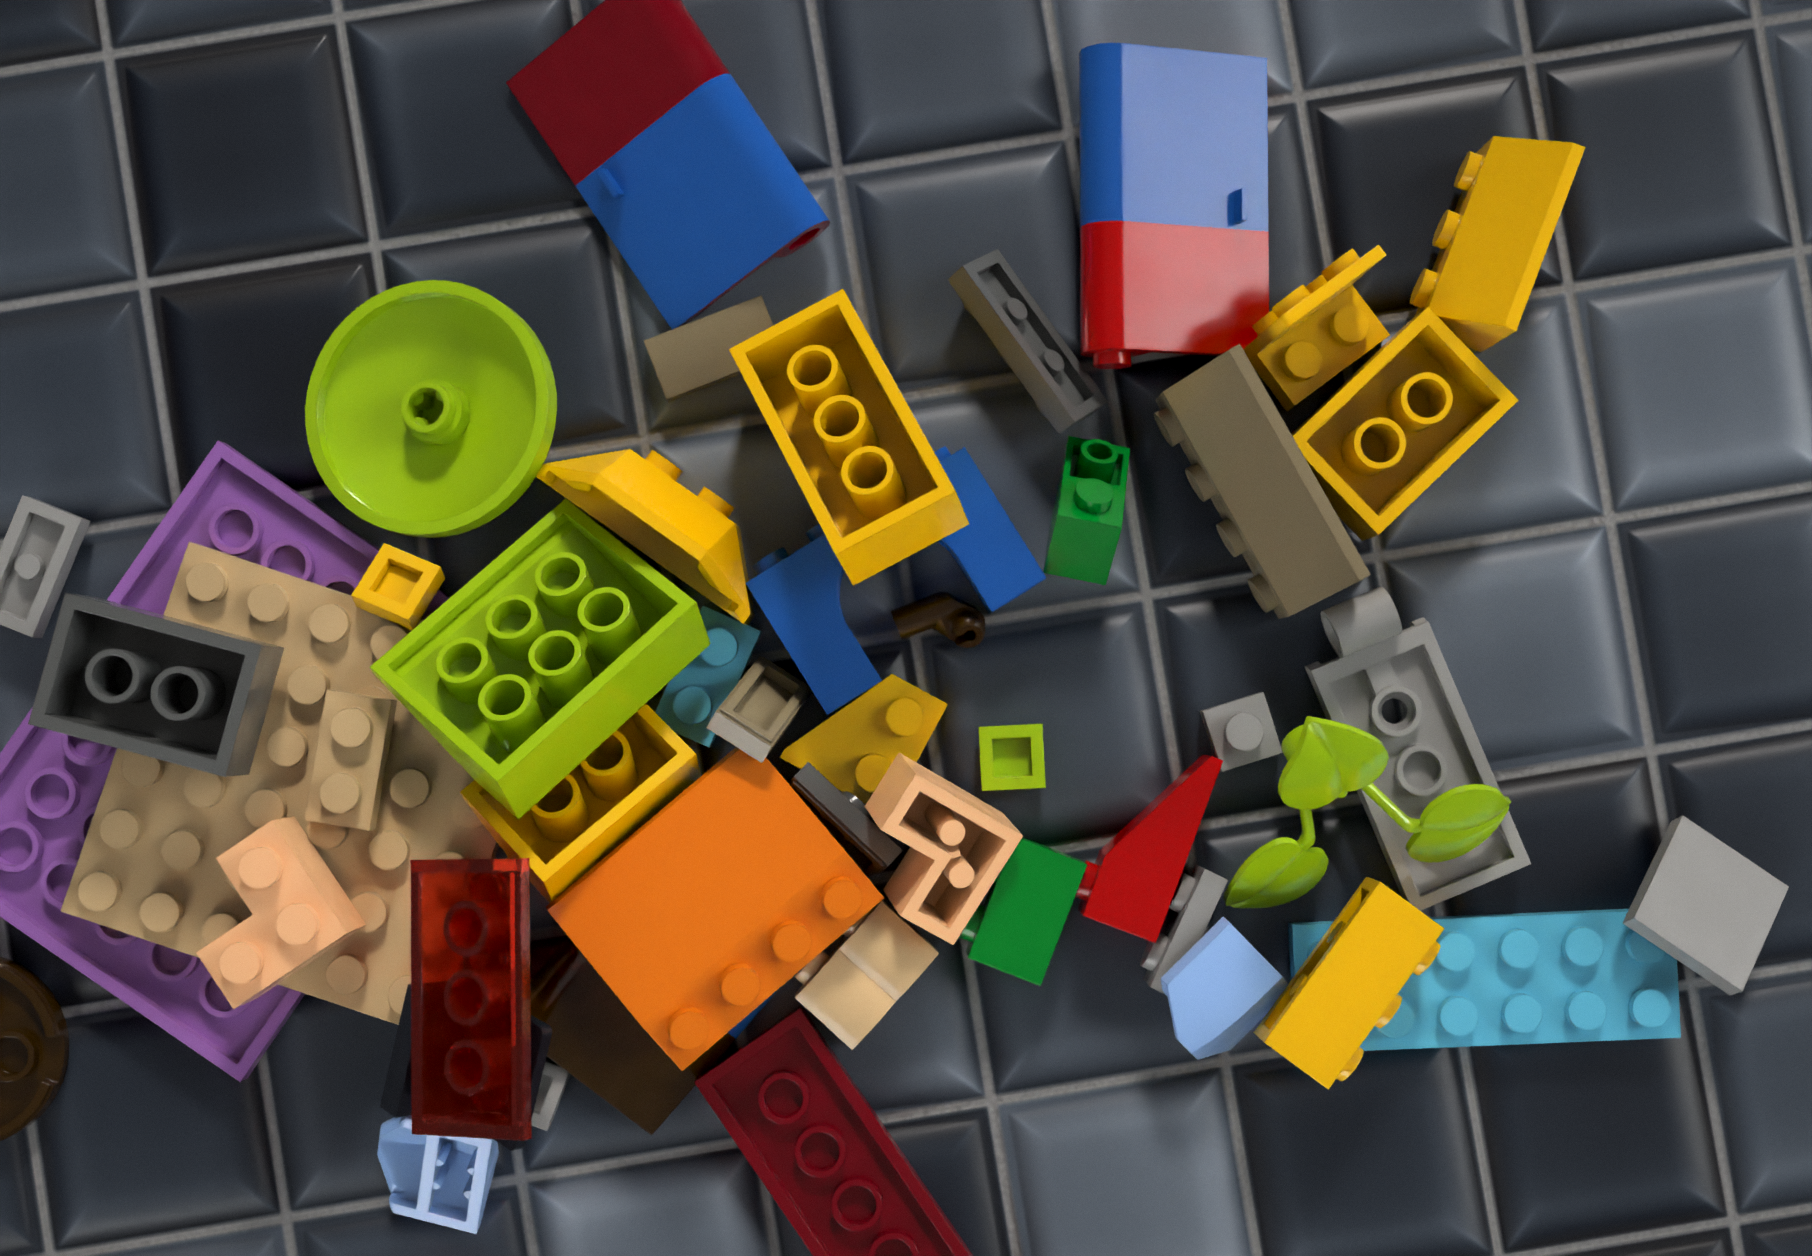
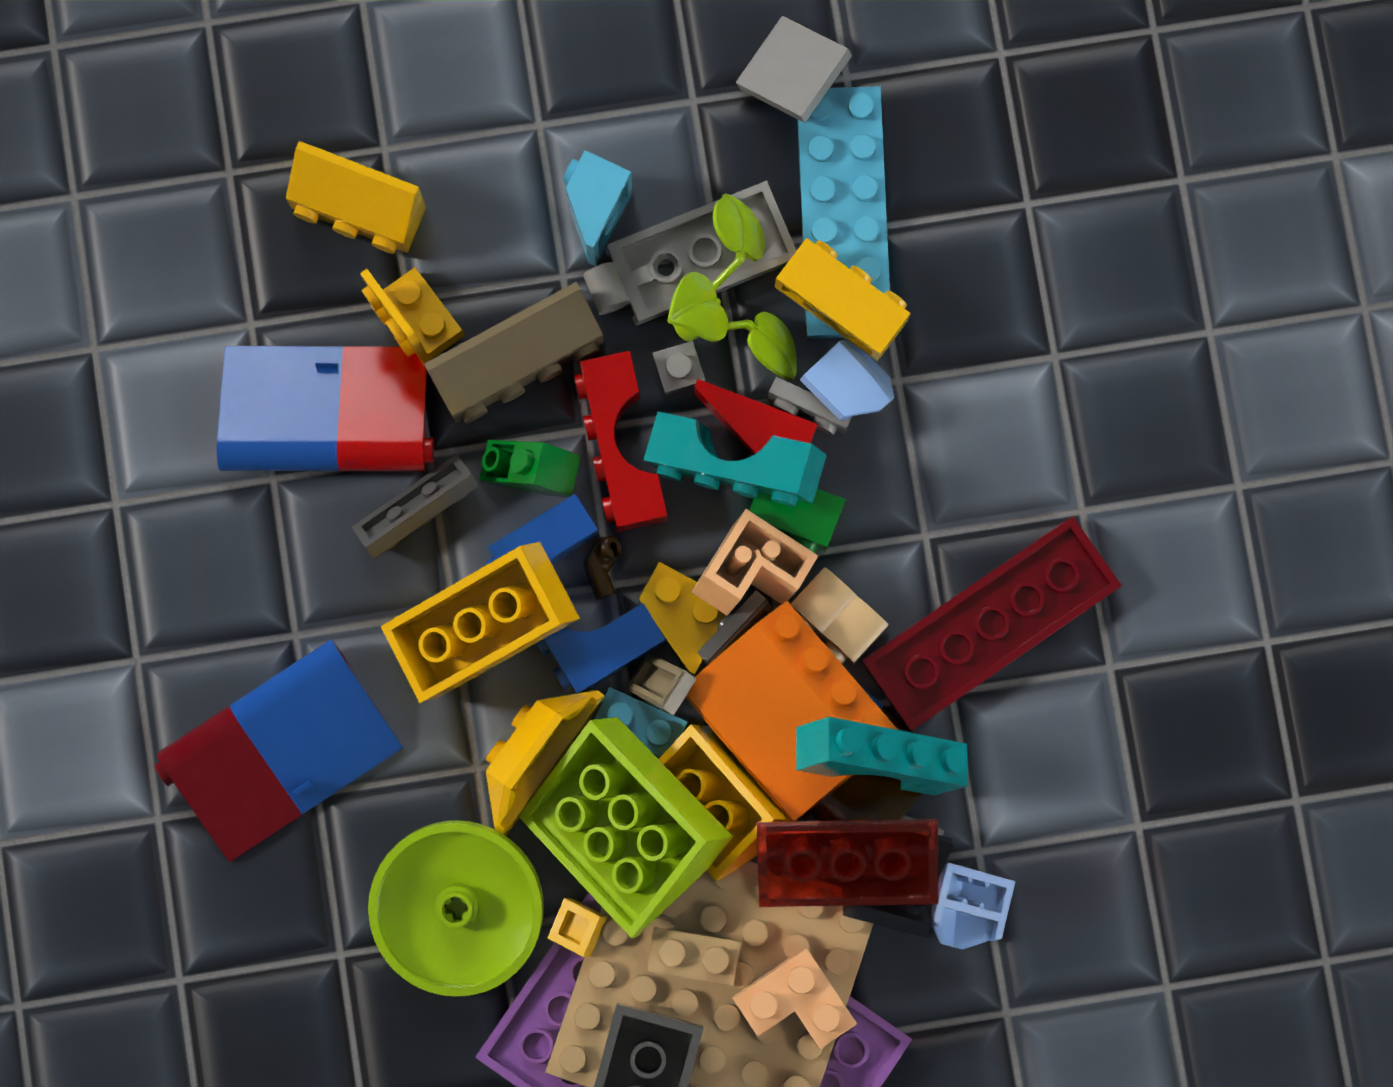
camera: 85 degrees left, 5 degrees down
(644, 1043) = (855, 748): none -> teal arch
(699, 351) = (416, 723): dark tan tile -> none
(1011, 757) = (695, 519): lime plate -> none
(1083, 890) = (781, 468): none -> teal arch
(1207, 629) = (610, 390): none -> red arch
(1400, 423) = (475, 262): yellow brick -> none
(1499, 606) = (596, 200): none -> medium azure slope

